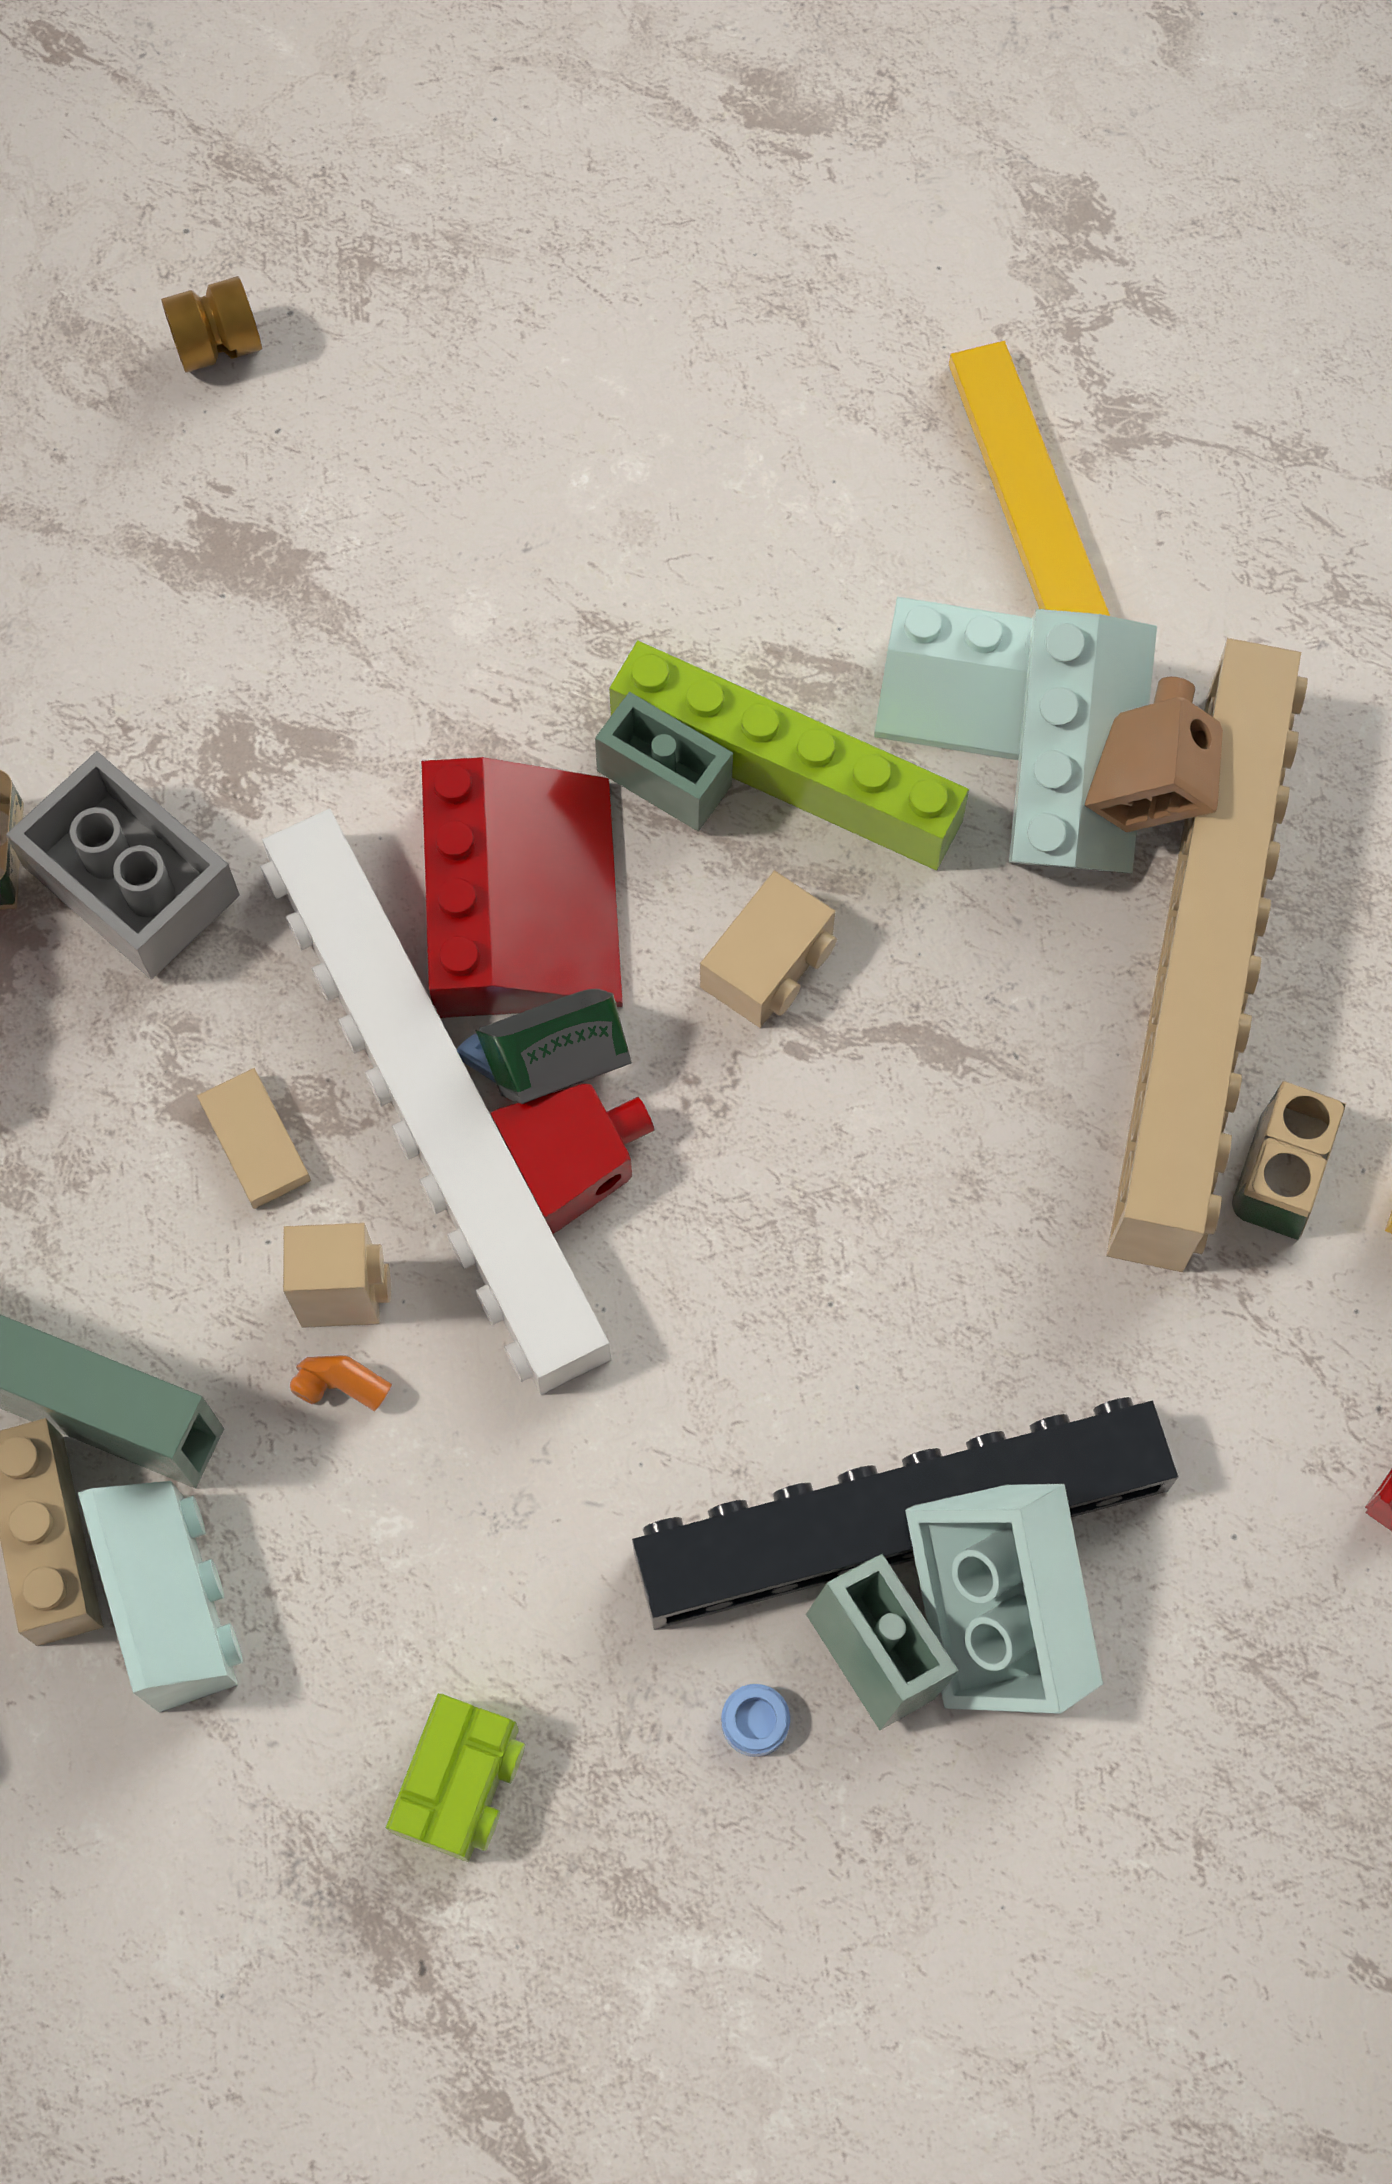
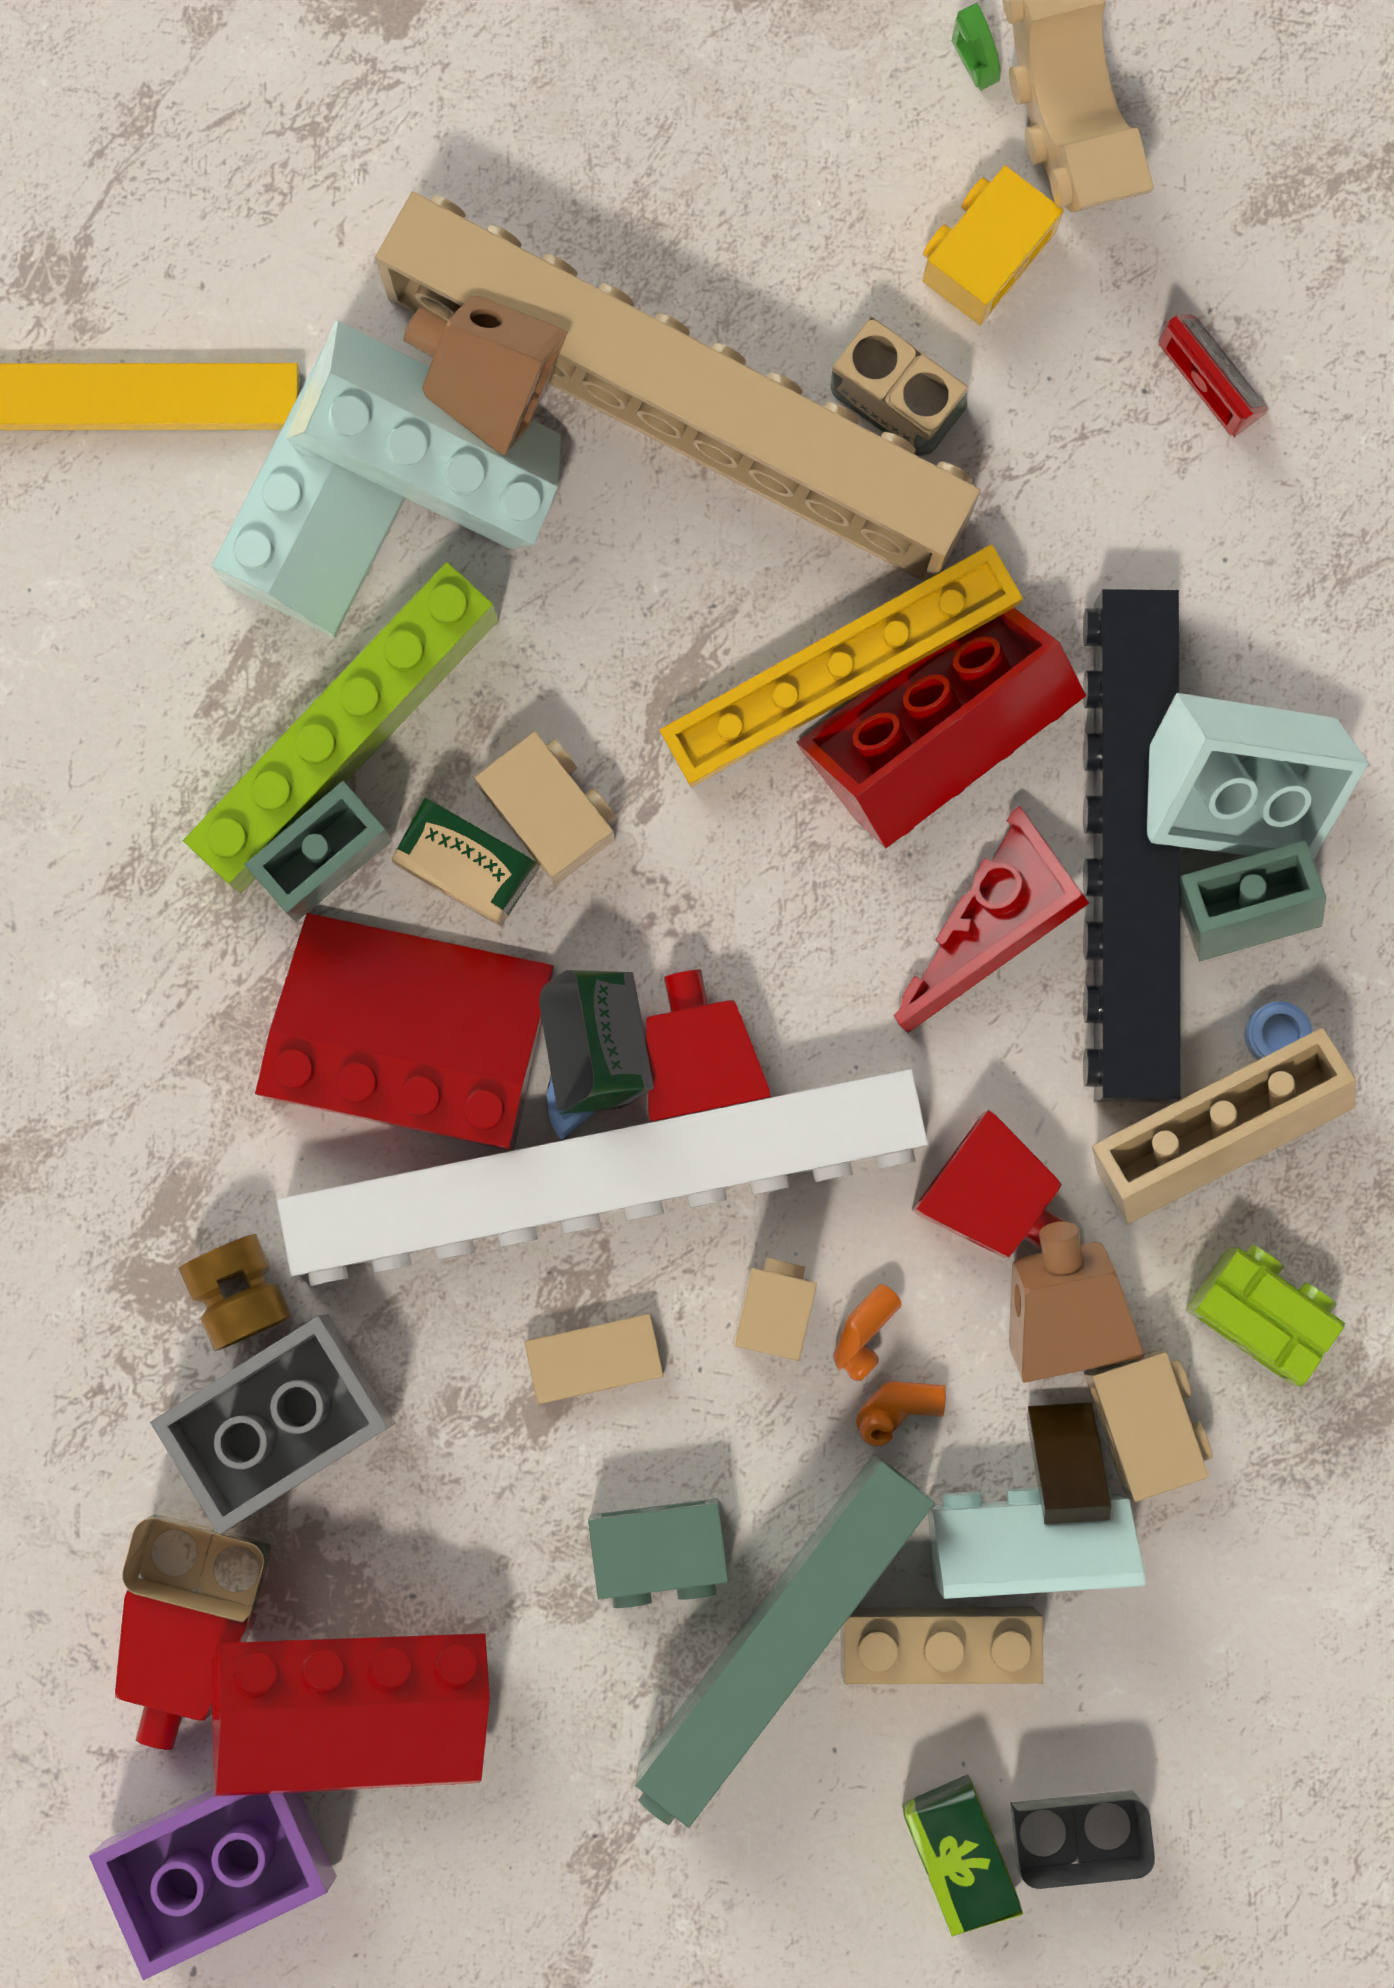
camera: 75 degrees left, 15 degrees up
(79, 1241) = (658, 1552): none -> sand green brick
(219, 815) = (245, 1312): none -> pearl gold wheel
(251, 1607) = (1068, 1463): none -> dark brown tile
(274, 1429) = (893, 1404): none -> orange arm
(311, 1685) = (1149, 1425): none -> tan brick
(410, 1567) = (1068, 1308): none -> medium nougat torso
(510, 1467) = (991, 1190): none -> red torso
(639, 1676) = (1225, 1125): none -> tan brick
(693, 890) = (464, 862): none -> piece
(790, 1399) = (1005, 911): none -> wing
(970, 1290) = (942, 723): none -> red slope
(995, 1180) = (841, 665): none -> yellow plate

